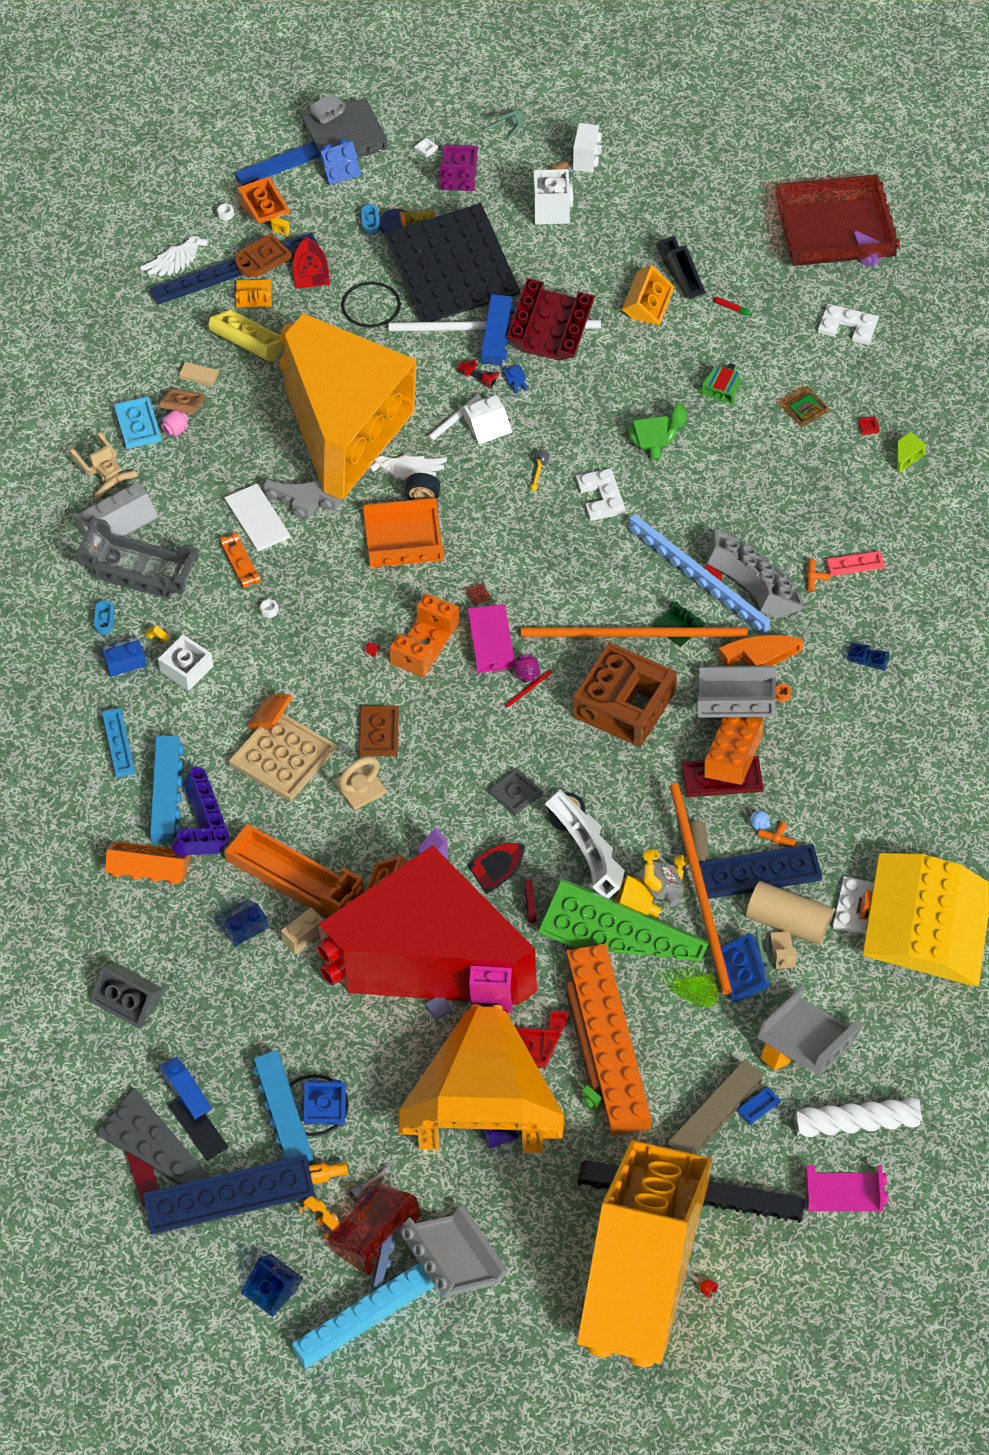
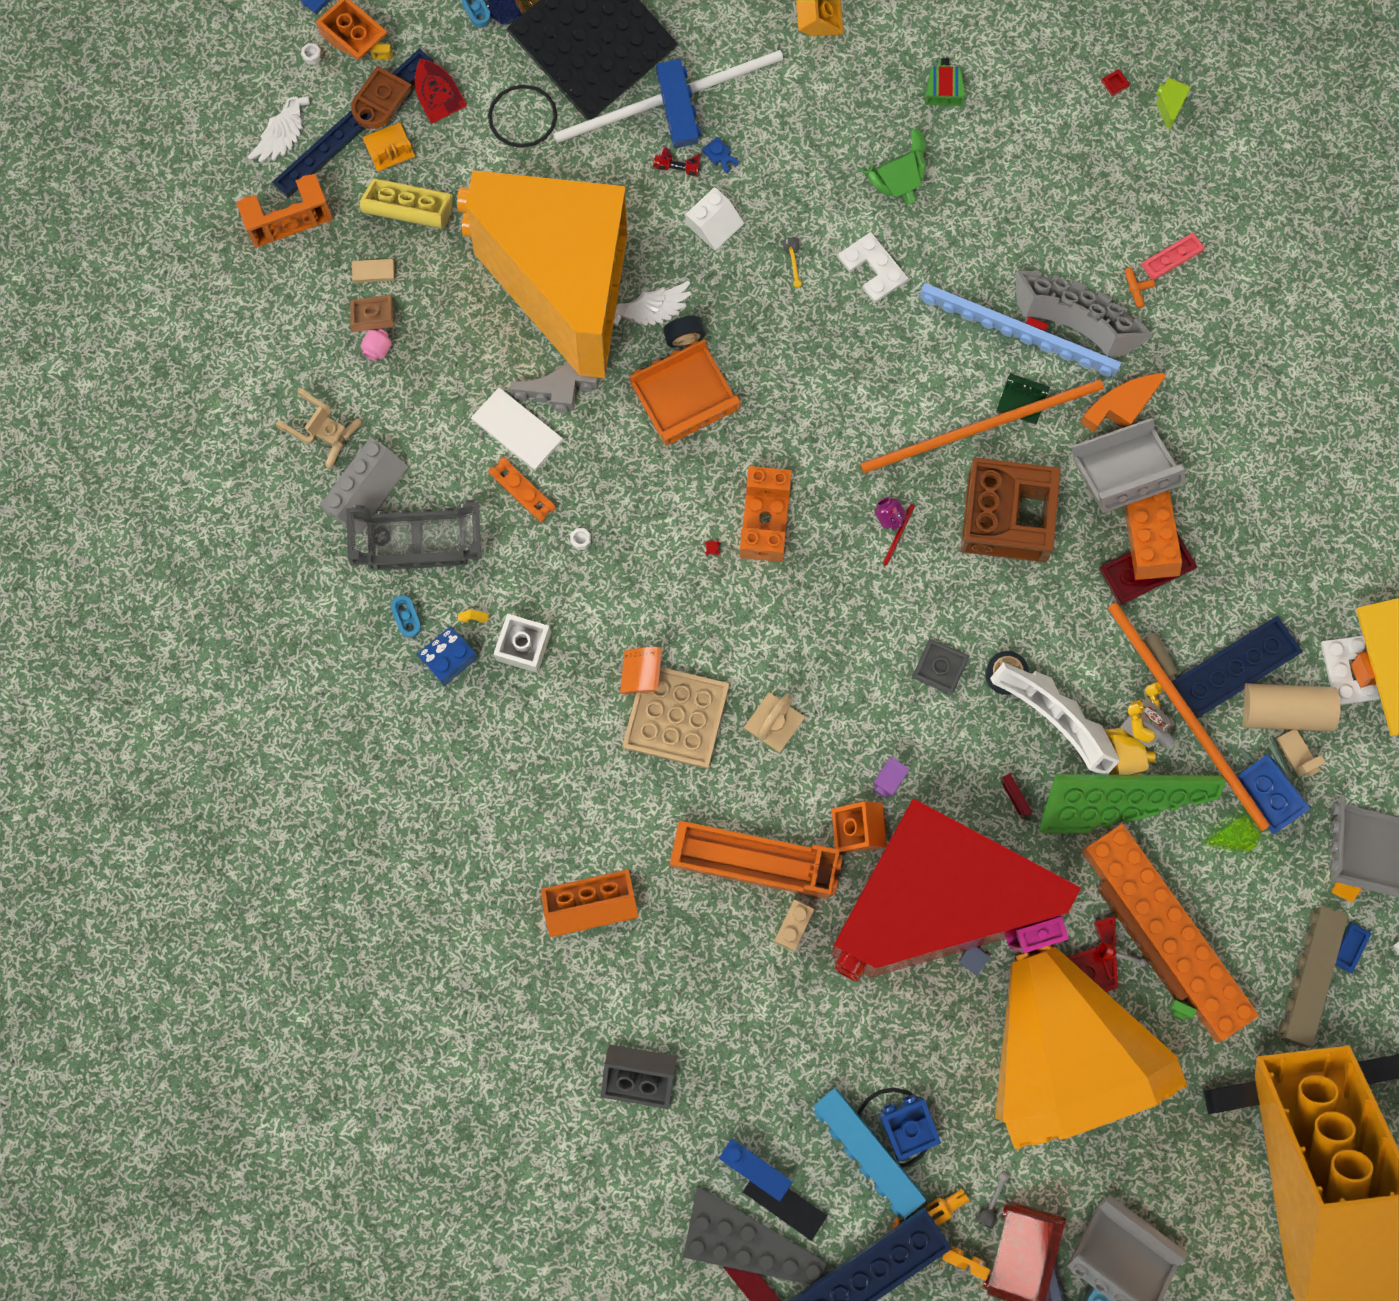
camera: 20 degrees left, 20 degrees up
(118, 742) = (491, 767): dark azure plate -> none
(137, 422) = (333, 357): medium azure plate -> none
(165, 316) = (288, 221): none -> orange plate
(165, 789) = (569, 808): dark azure brick -> none
(213, 832) = (627, 827): dark purple beam -> none
(242, 922) = (721, 937): clear blue slope -> none
(379, 730) = (764, 646): dark orange tile -> none
(450, 421) = (675, 227): white bar -> none
(478, 594) = (796, 438): clear red tile -> none
(491, 638) = (836, 488): dark pink panel -> none
(497, 865) = (962, 766): shield -> none
(549, 321) = (732, 73): dark red slope -> none
(549, 1032) = (1108, 952): none -> red hinge
(760, 820) = (1211, 607): light blue plate -> none
(777, 836) = (1233, 618): orange piece -> none
(783, 687) = (1172, 440): orange bush -> none
(804, 406) = (1039, 82): clear orange tile -> none
(863, 655) = (1234, 366): clear blue slope -> none

